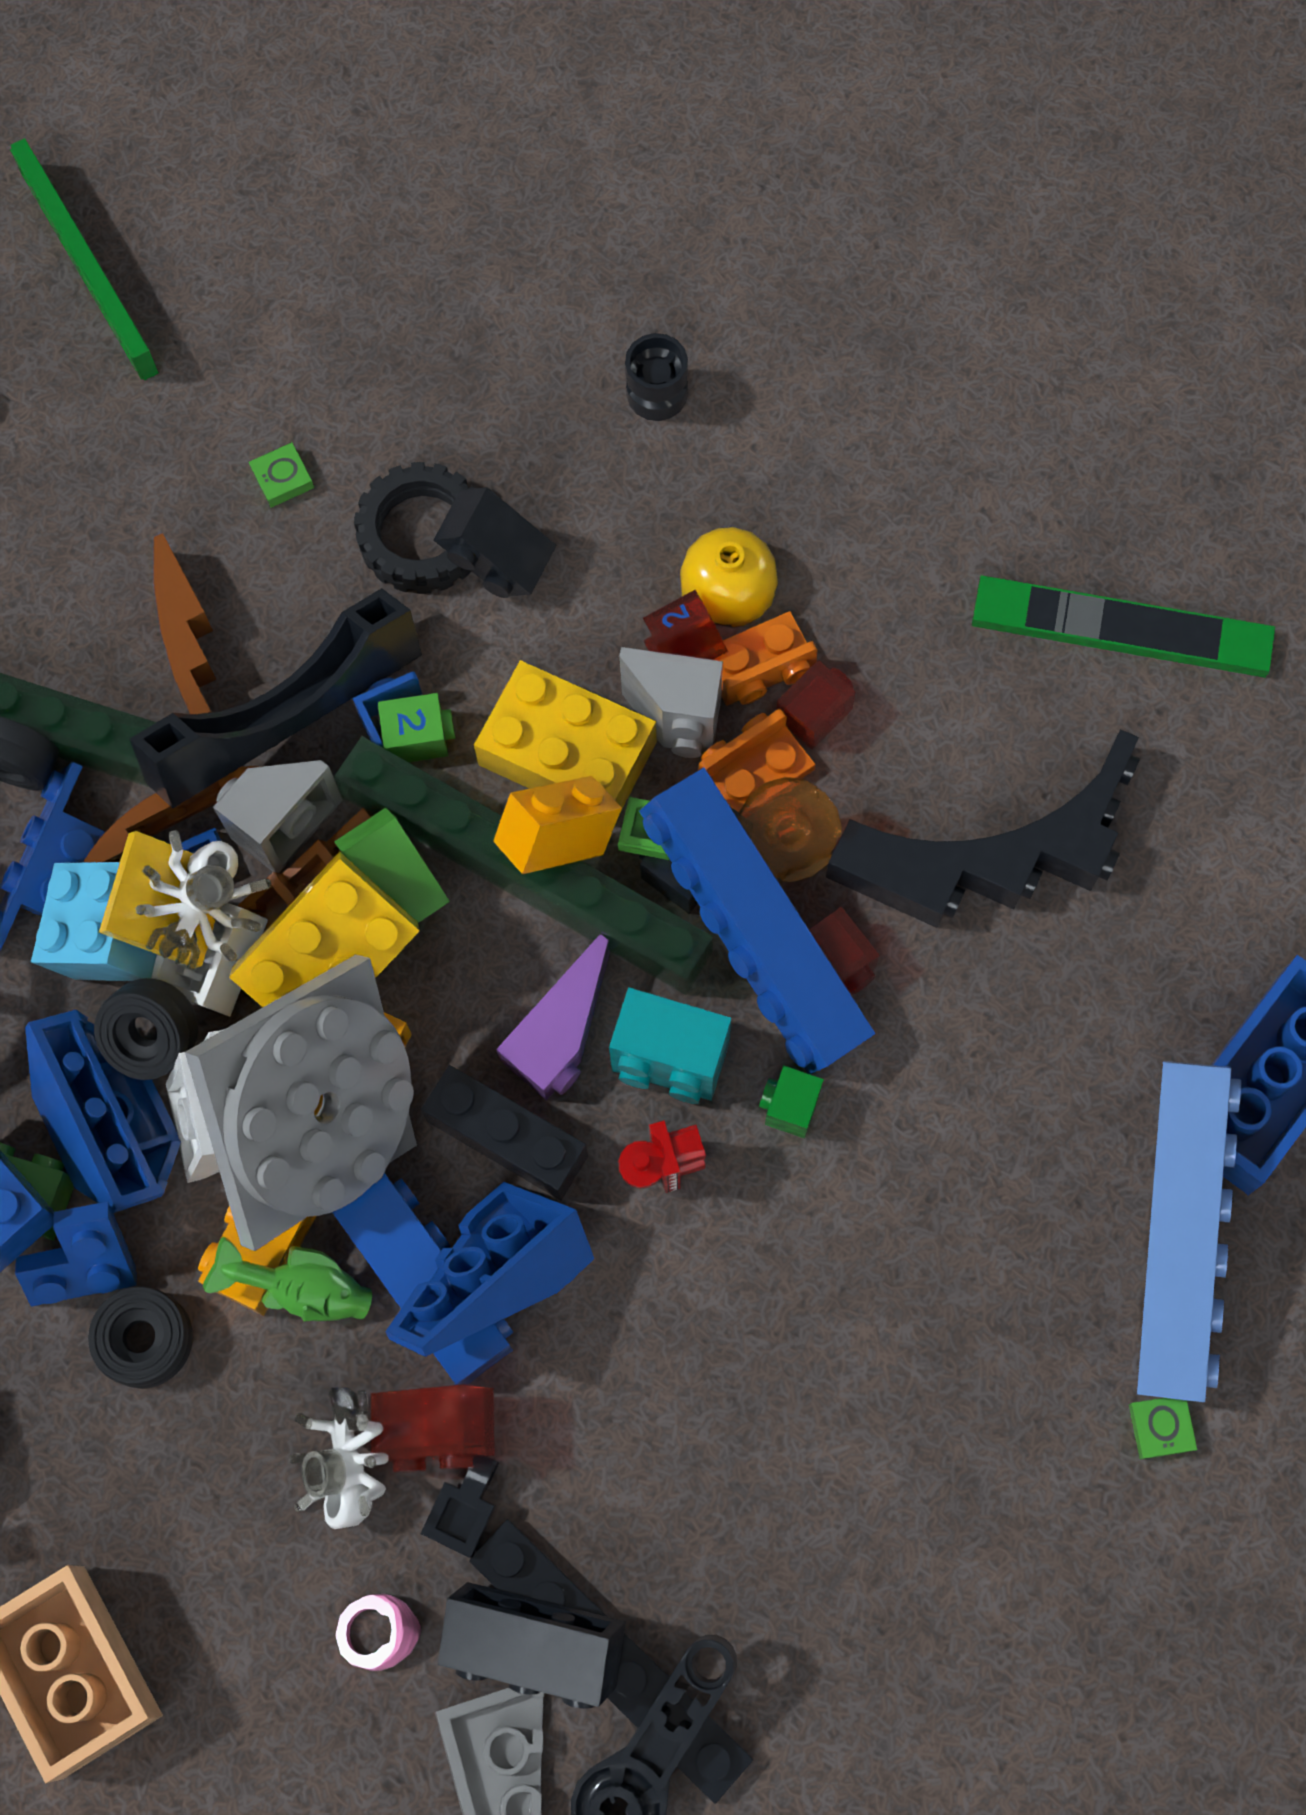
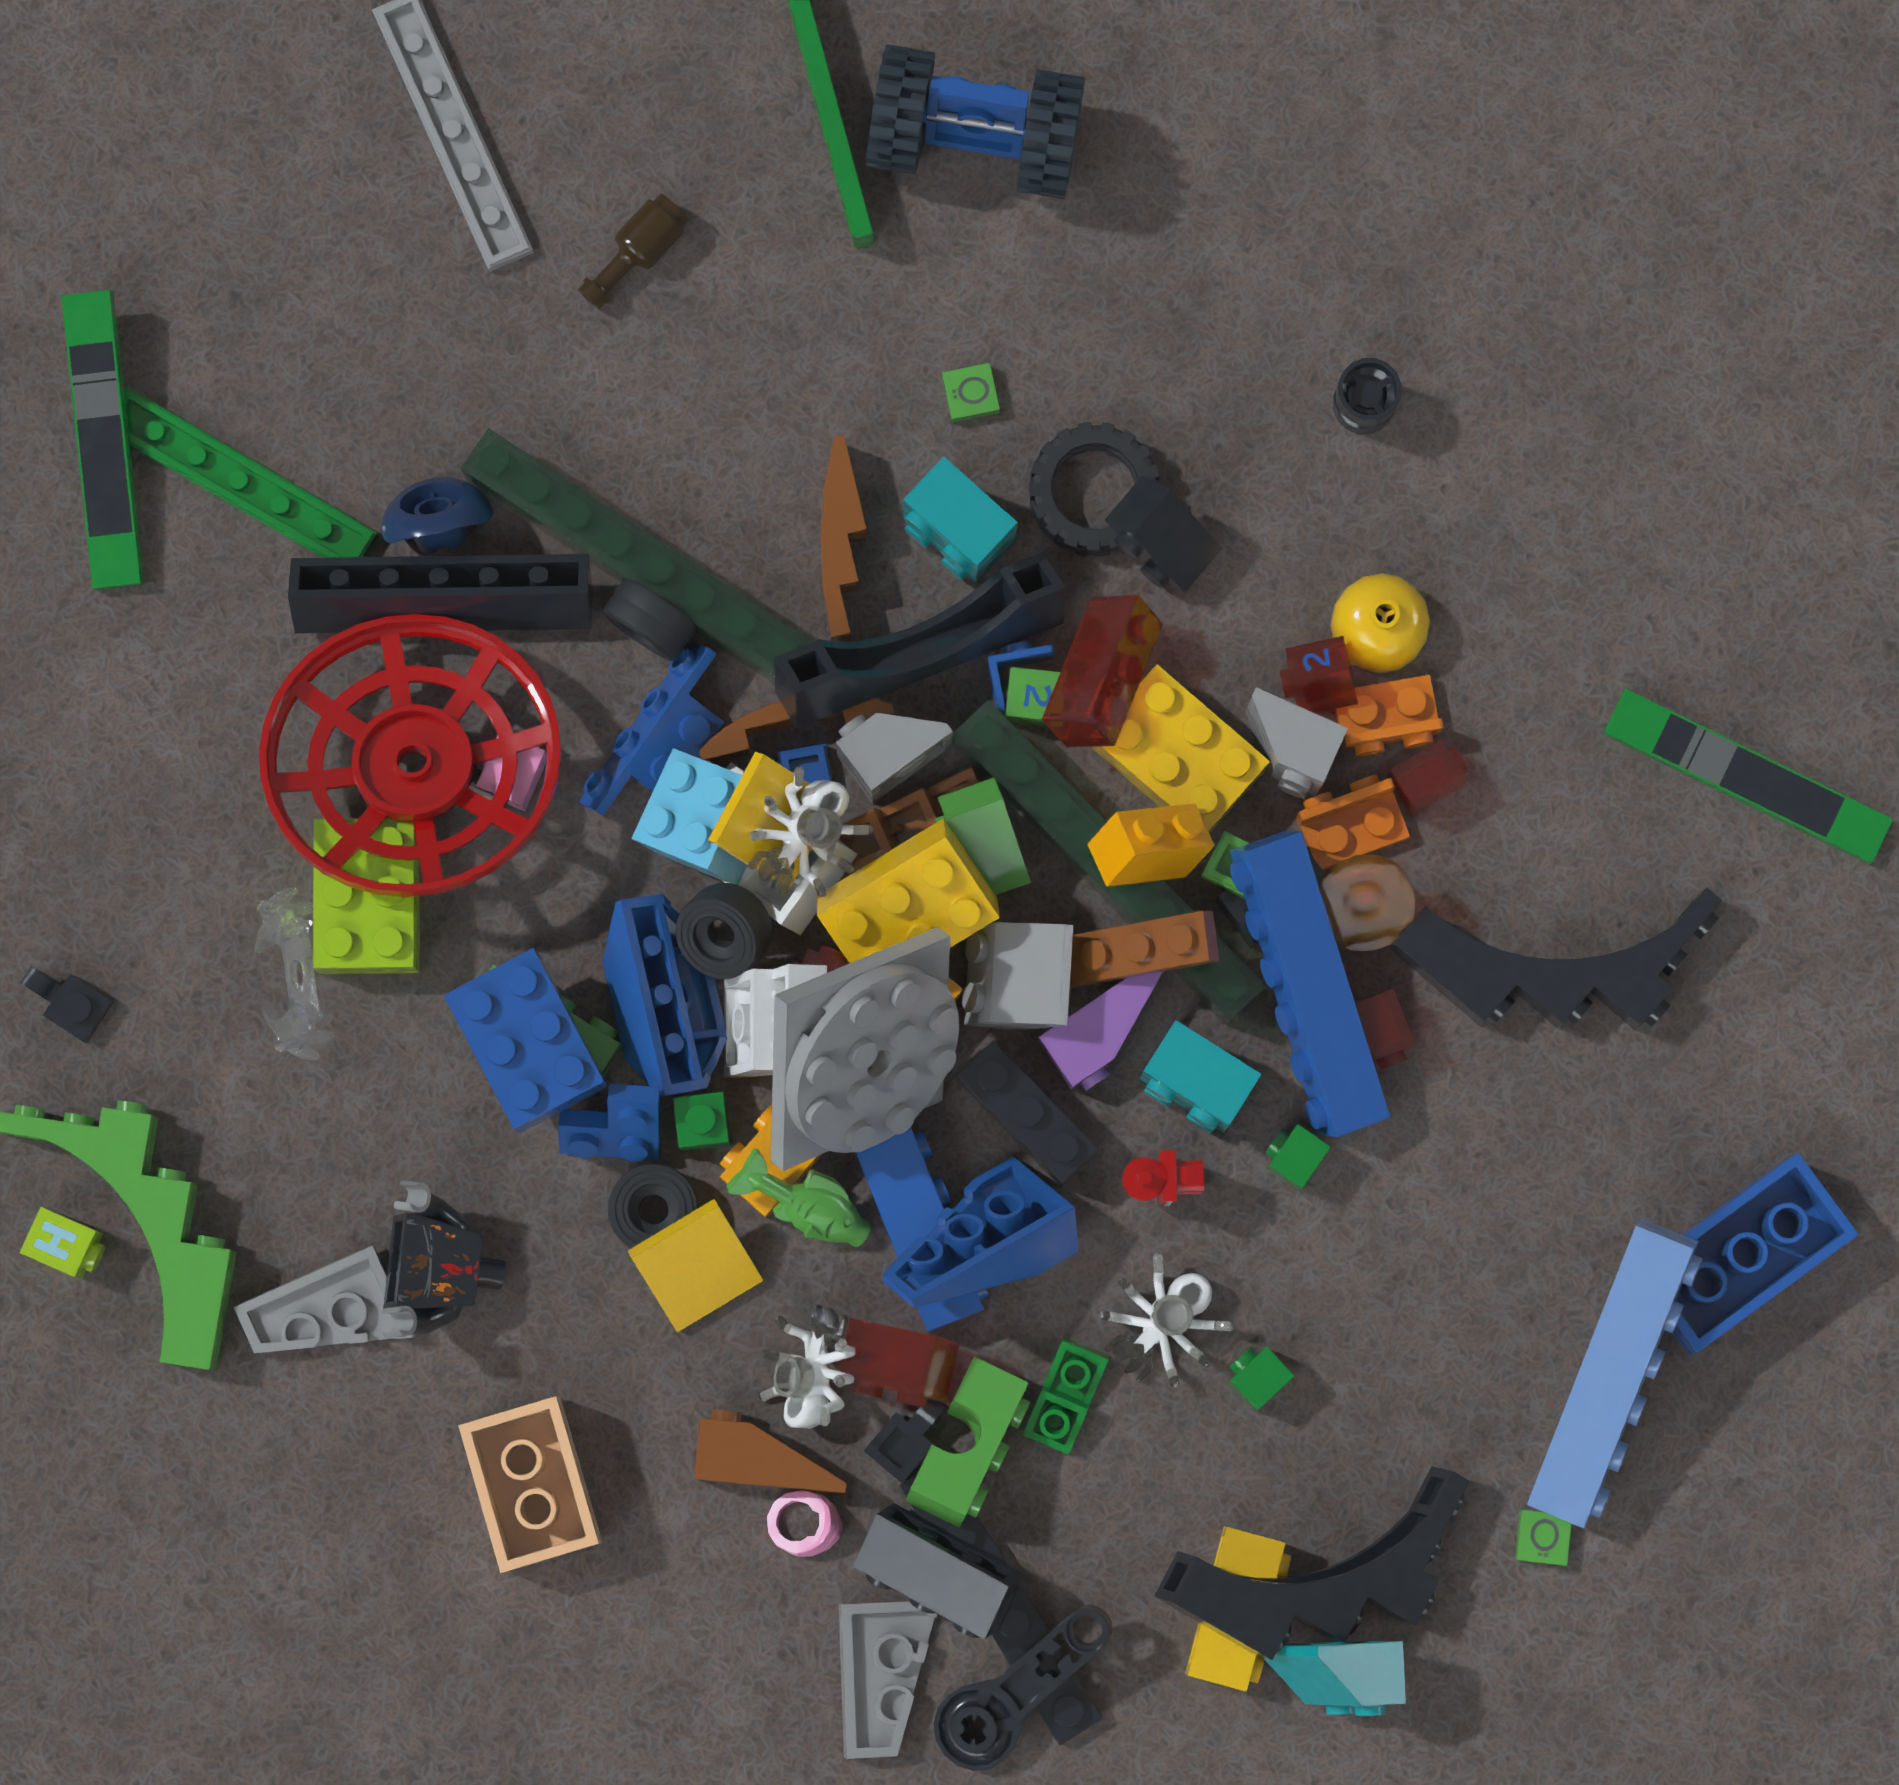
camera: 10 degrees right, 10 degrees up
(169, 1231) = (701, 1121): none -> green brick
(194, 1383) = (695, 1265): none -> yellow tile
(220, 227) = (974, 119): none -> black plate
(291, 580) = (958, 521): none -> teal brick
(296, 1573) = (747, 1455): none -> dark orange slope
(458, 994) = (1018, 976): none -> light grey slope
(468, 681) = (1102, 671): none -> clear red brick
(520, 1541) = (951, 1482): none -> bright green arch
(562, 939) = (1143, 948): none -> dark orange plate
(621, 1415) = (1066, 1395): none -> green slope
(707, 1302) = (1168, 1317): none -> animal
(817, 1337) = (1258, 1376): none -> green plate
(866, 1596) = (1214, 1656): none -> yellow brick
(961, 1558) = (1329, 1600): none -> black arch
(999, 1635) = (1344, 1676): none -> teal slope

